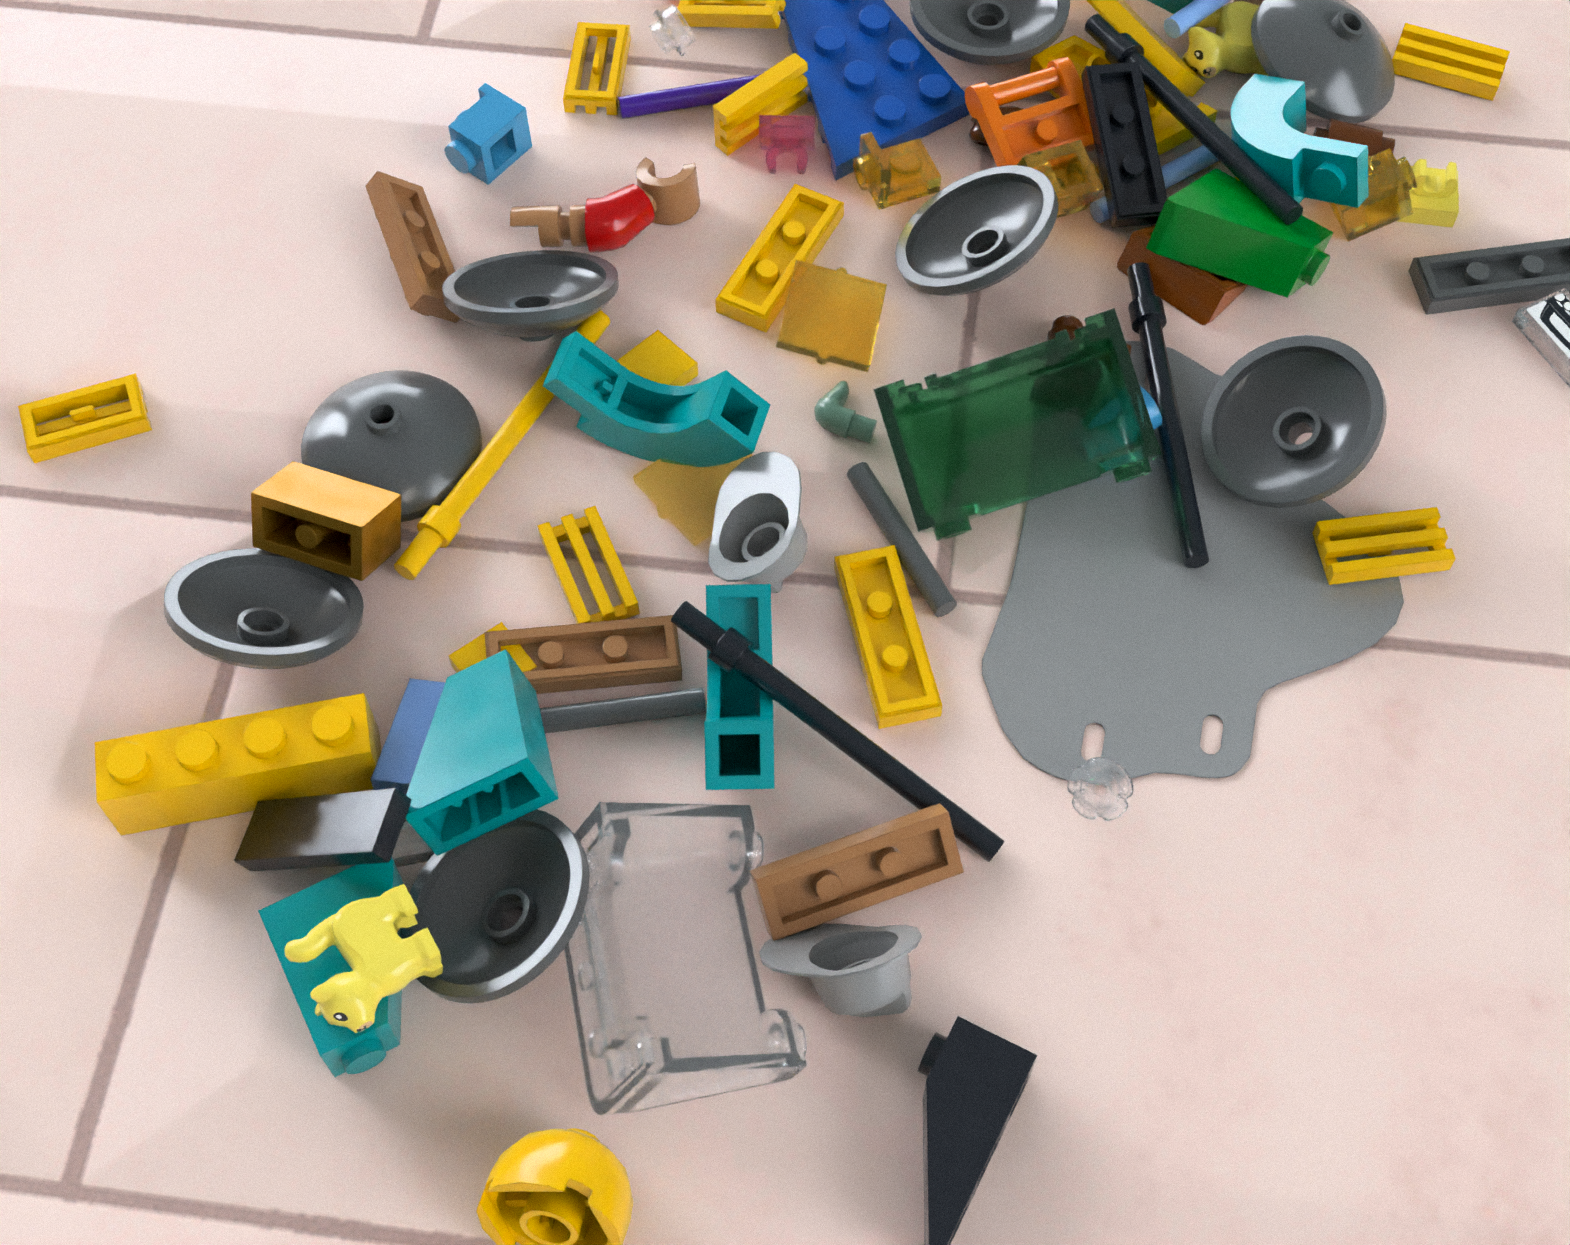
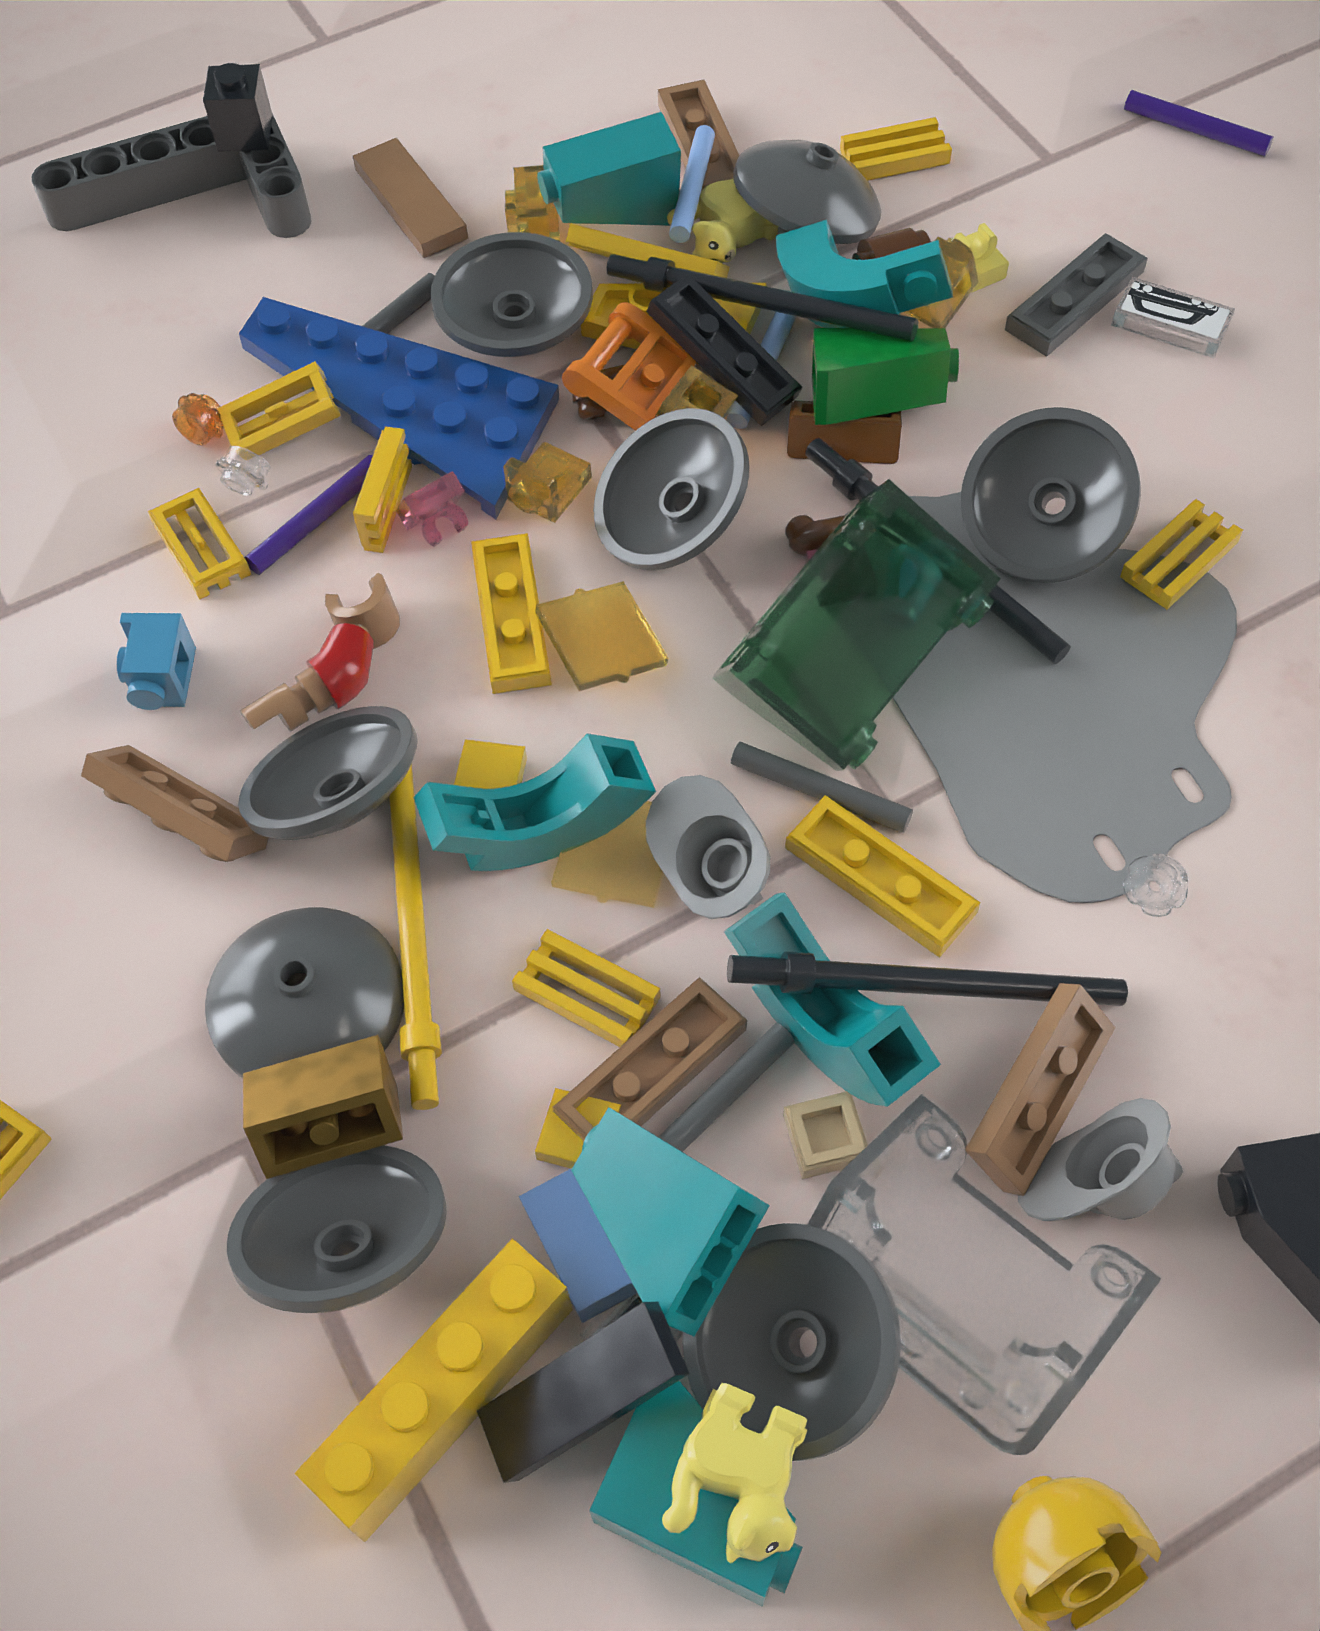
camera: 35 degrees left, 0 degrees up
(668, 782) = (824, 1133): none -> tan tile
(841, 420) = (684, 719): sand green animal -> none

